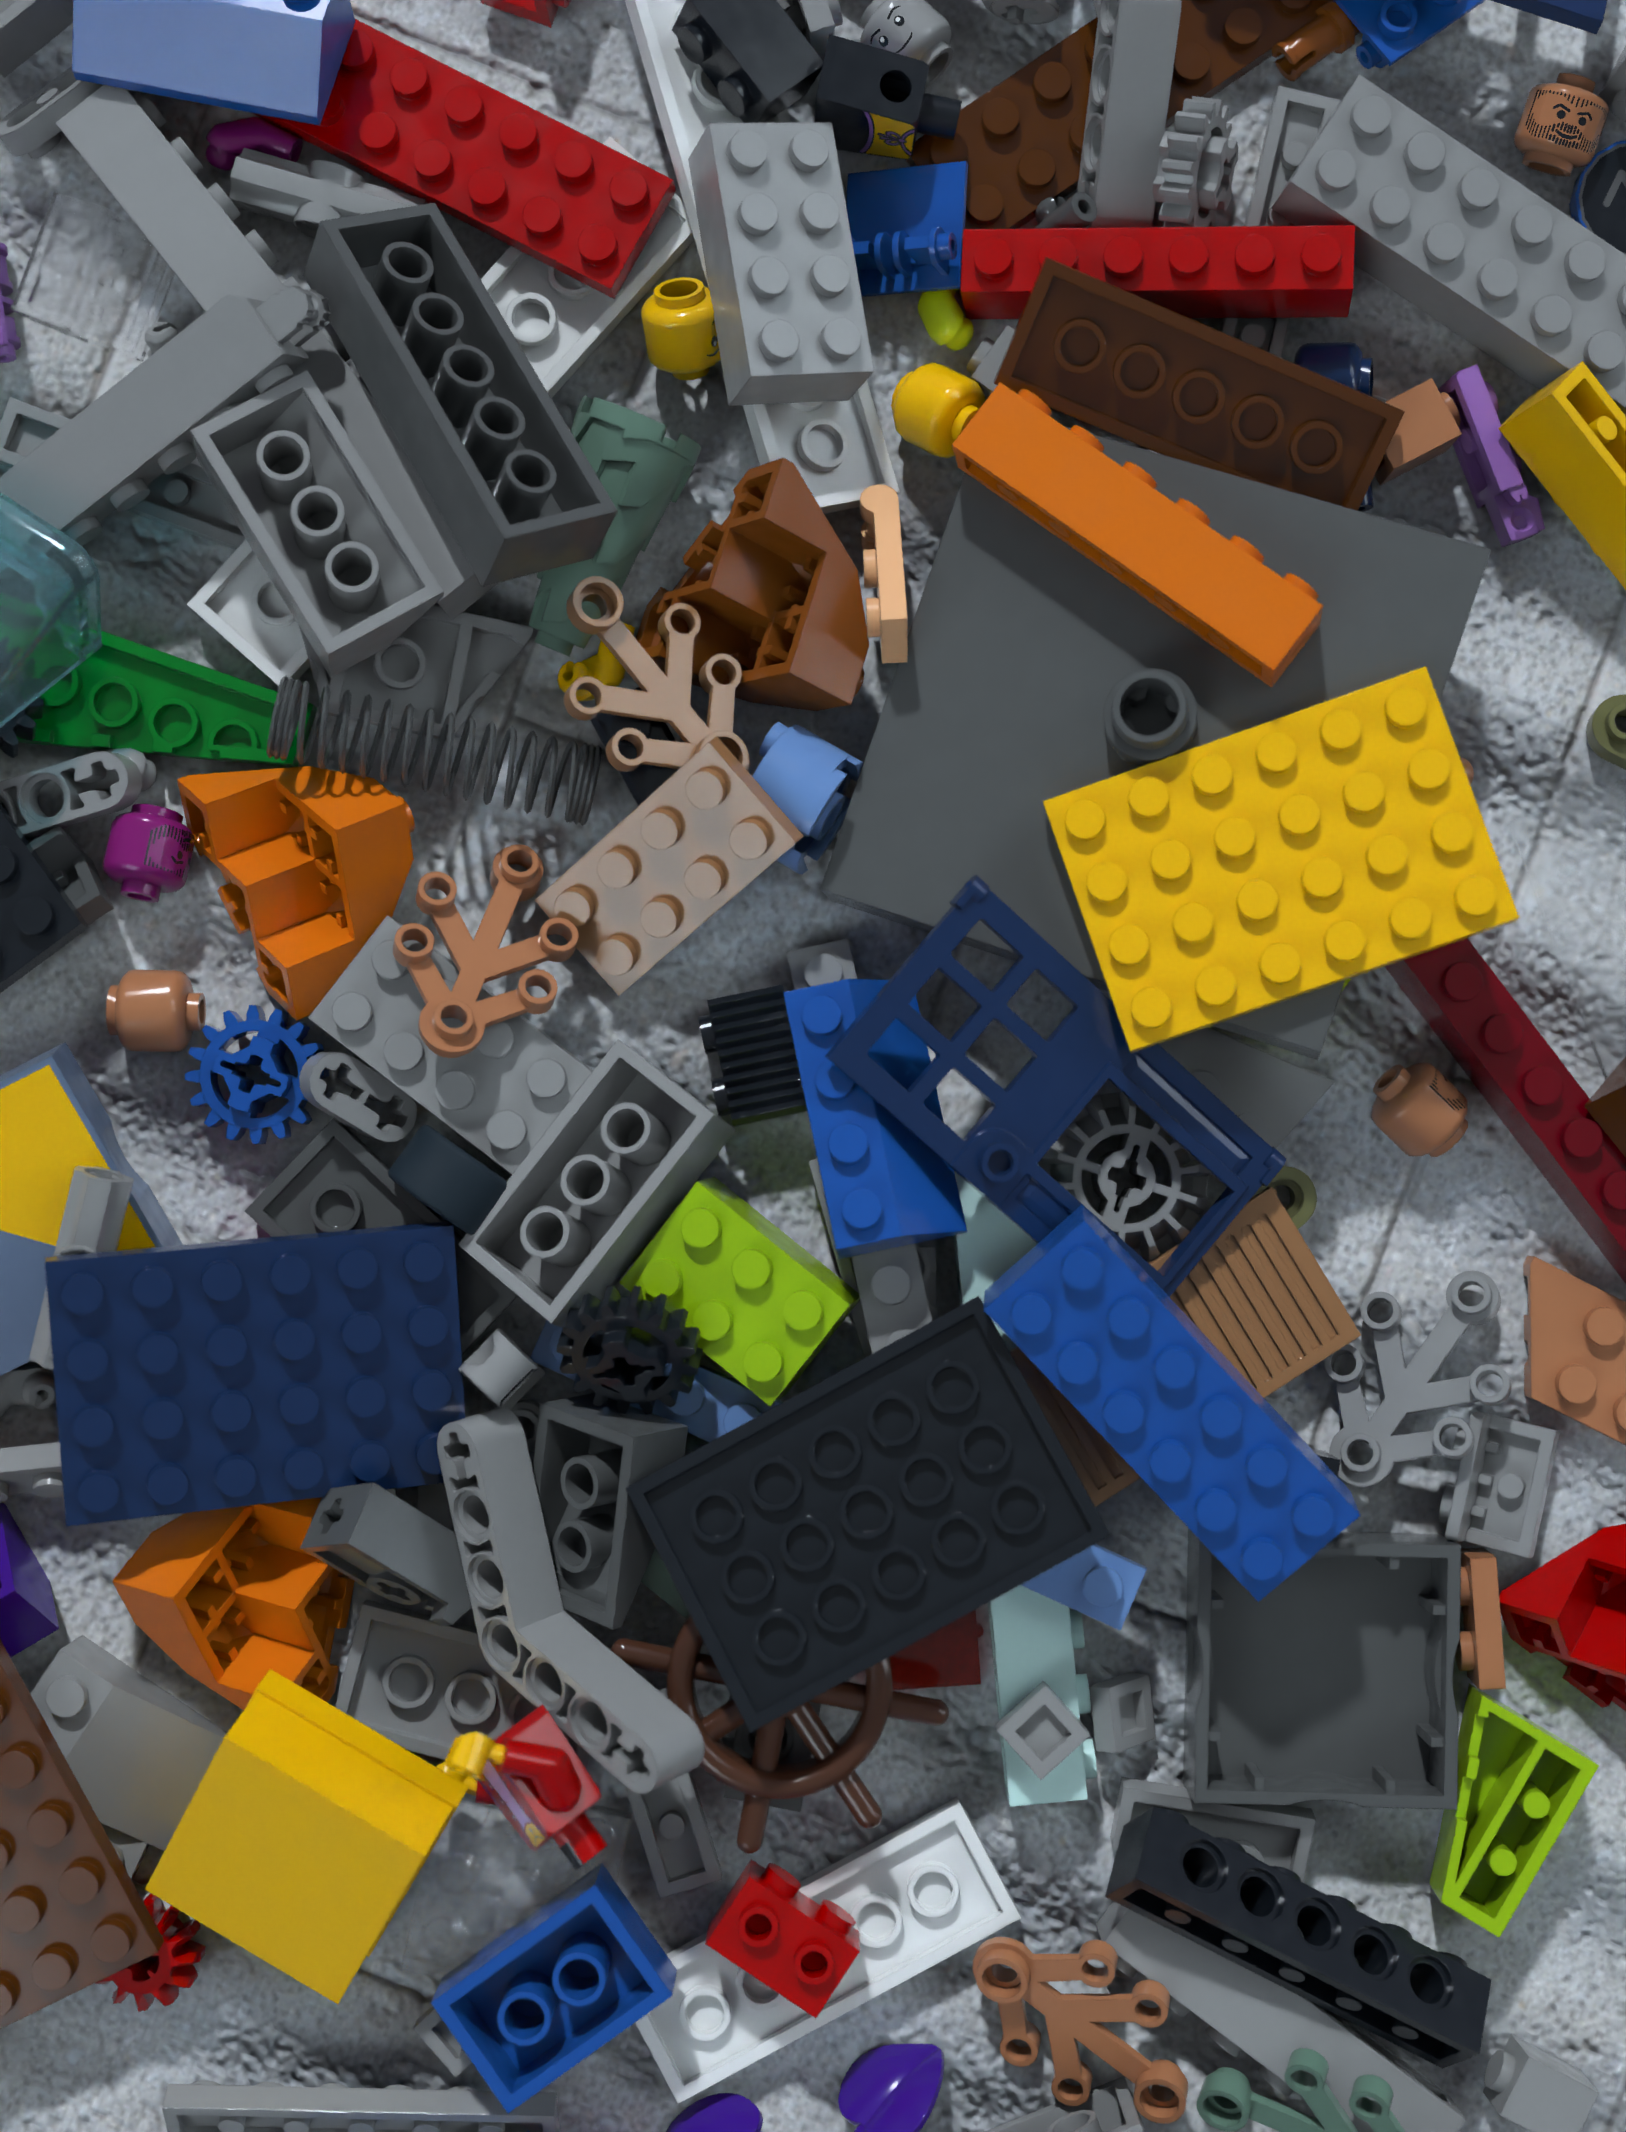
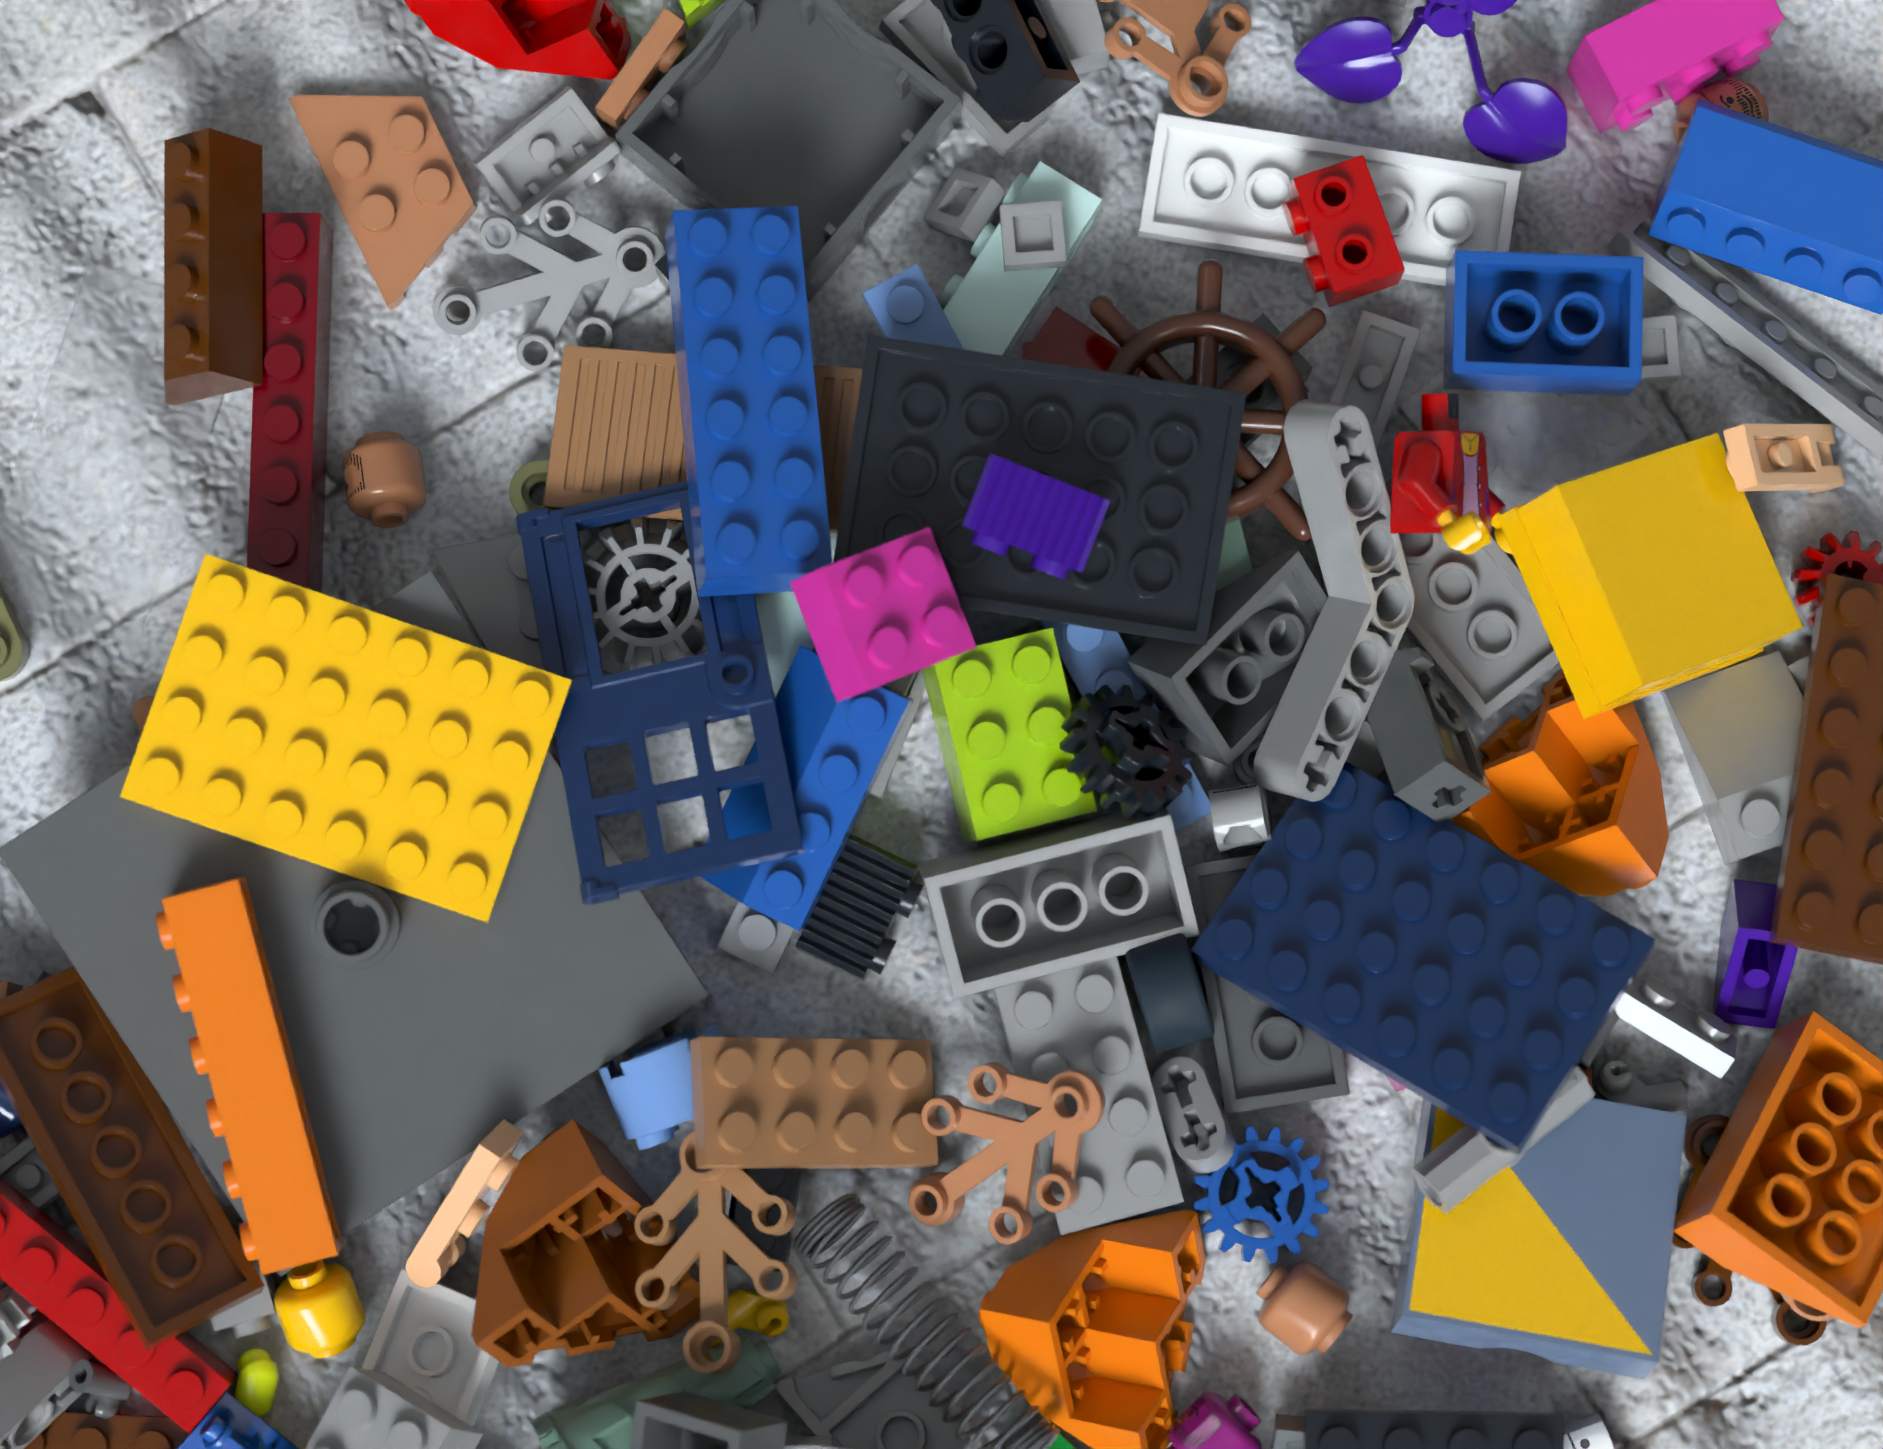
camera: 145 degrees left, 5 degrees down
(271, 2022) = (1782, 457): none -> light nougat plate
(847, 1487) = (1034, 515): none -> dark purple brick
(910, 1303) = (883, 614): none -> dark pink brick

